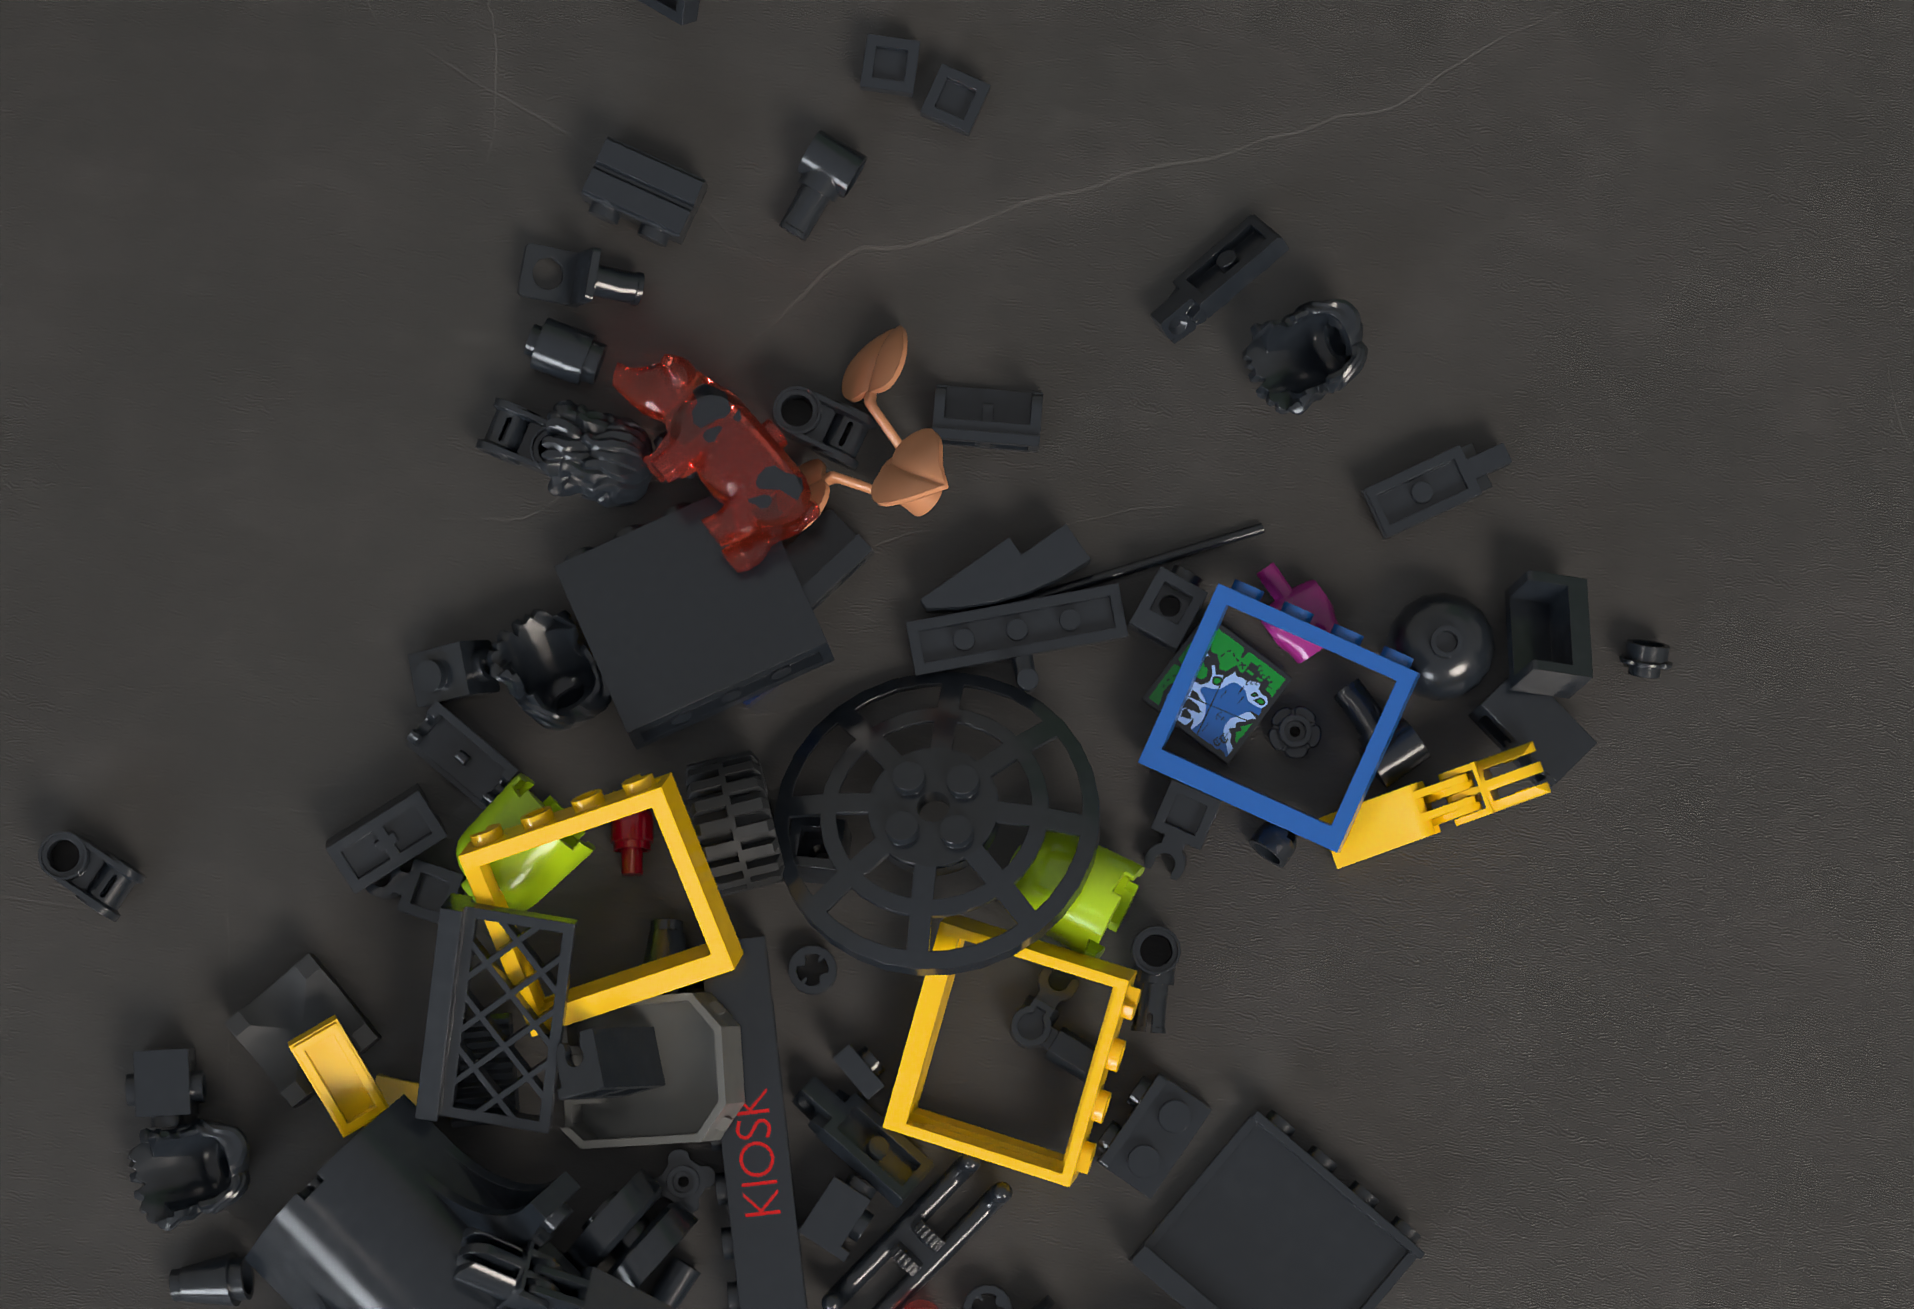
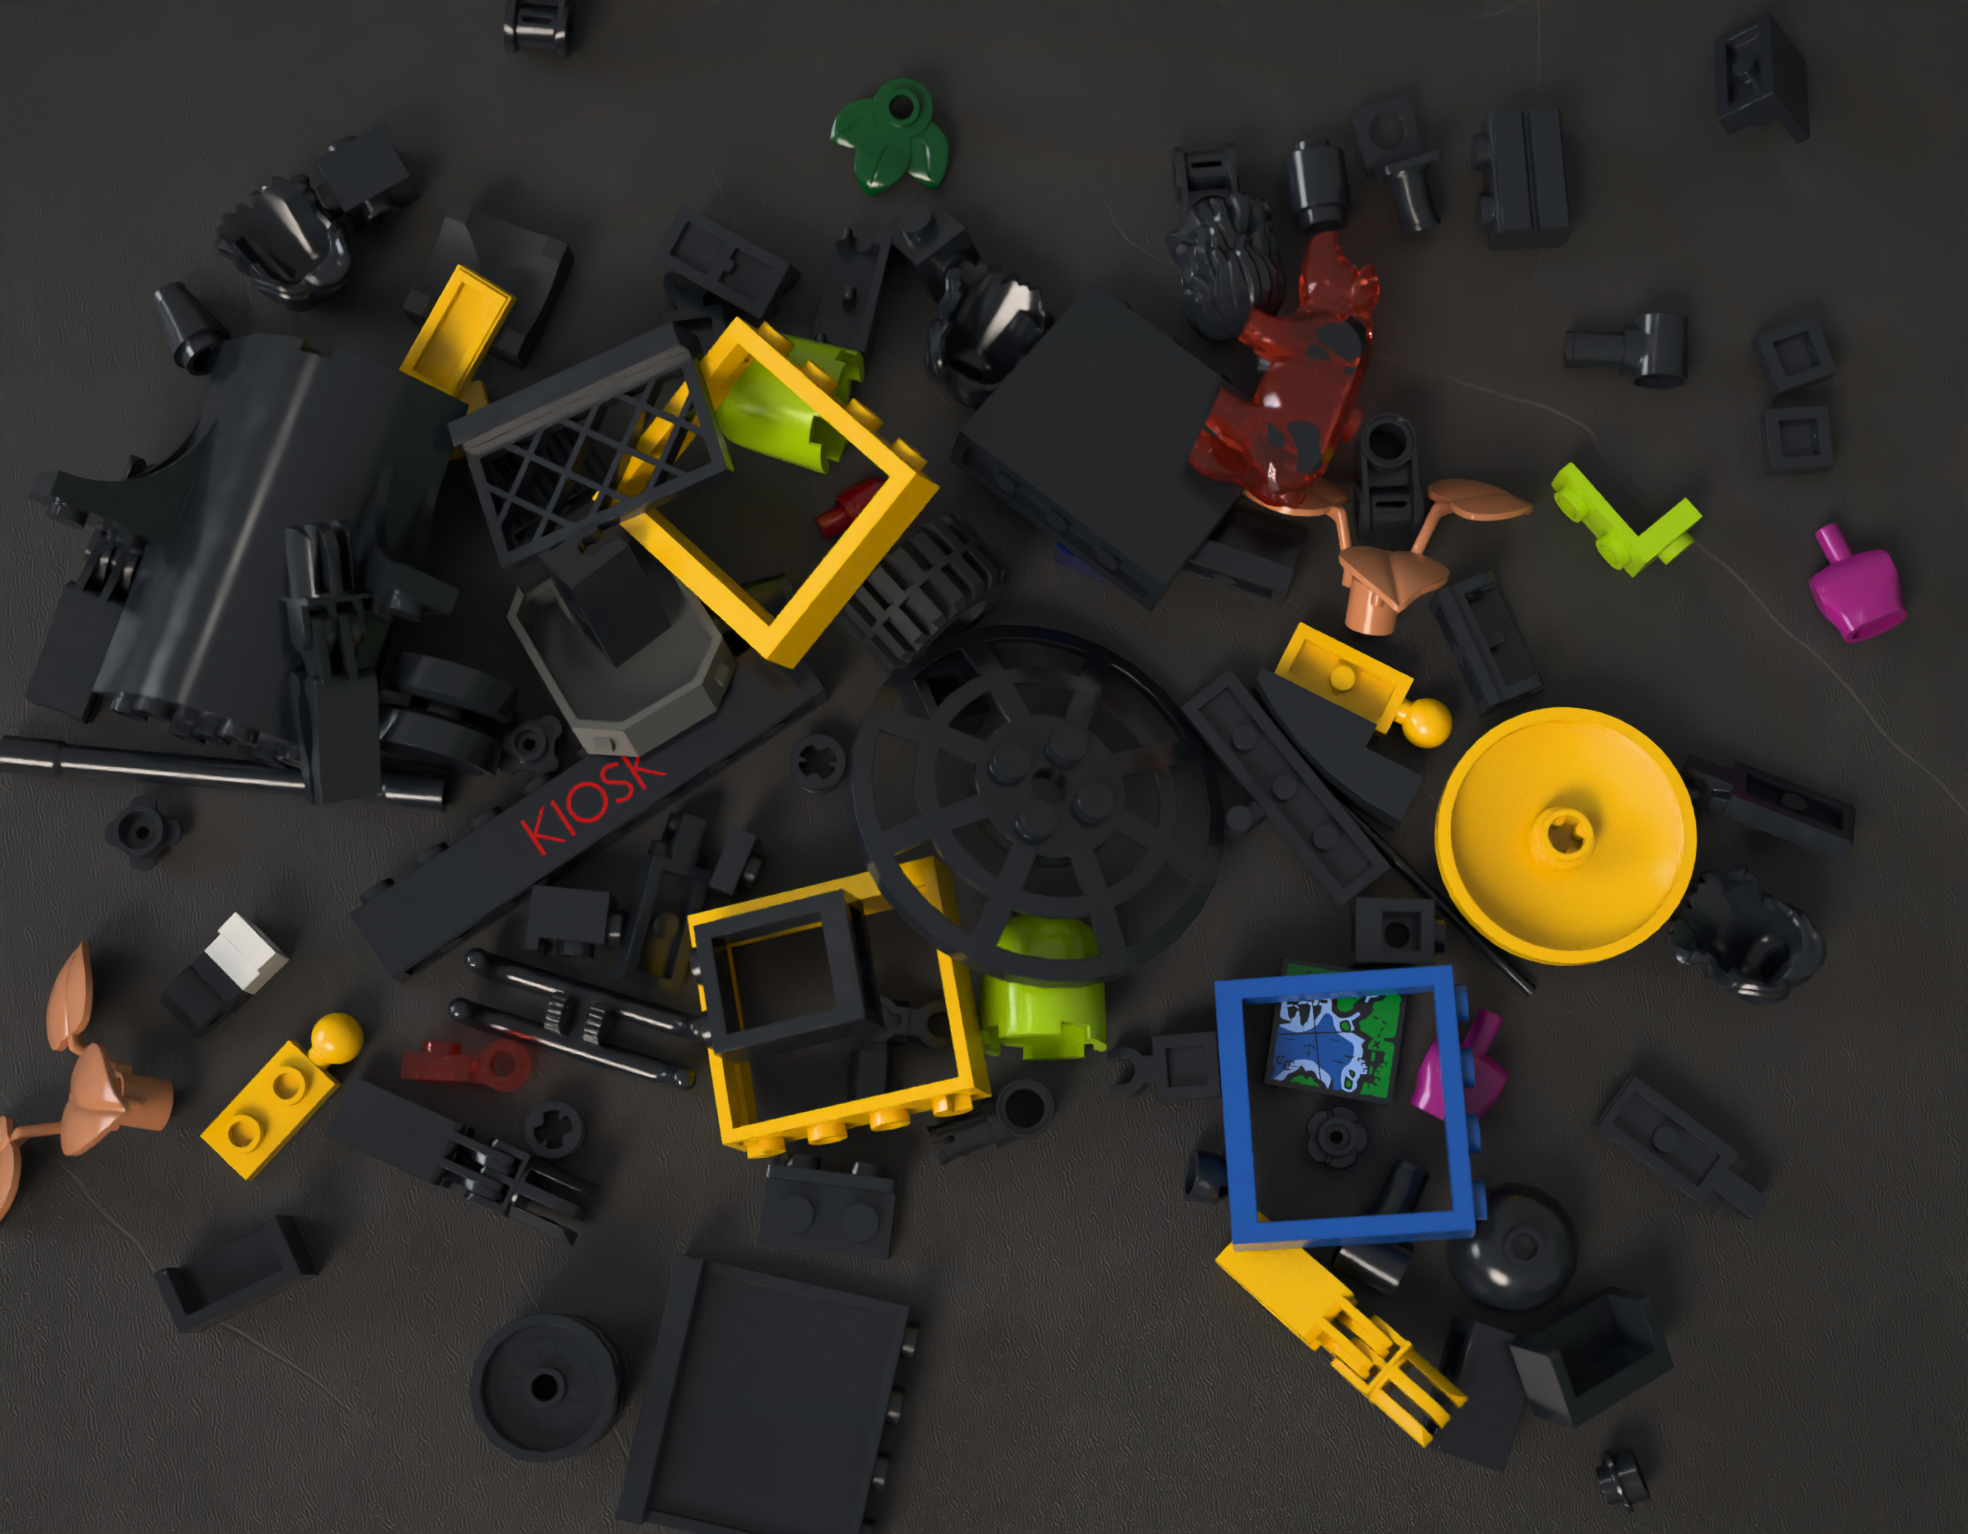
camera: 65 degrees right, 5 degrees down
(354, 662) = (891, 145): none -> dark green plate
(971, 532) = (1363, 687): none -> yellow plate
(978, 242) = (1616, 539): none -> lime bracket
(991, 1025) = (850, 967): none -> black window
(1092, 120) = (1858, 590): none -> magenta piece
(1163, 443) = (1565, 836): none -> yellow dish

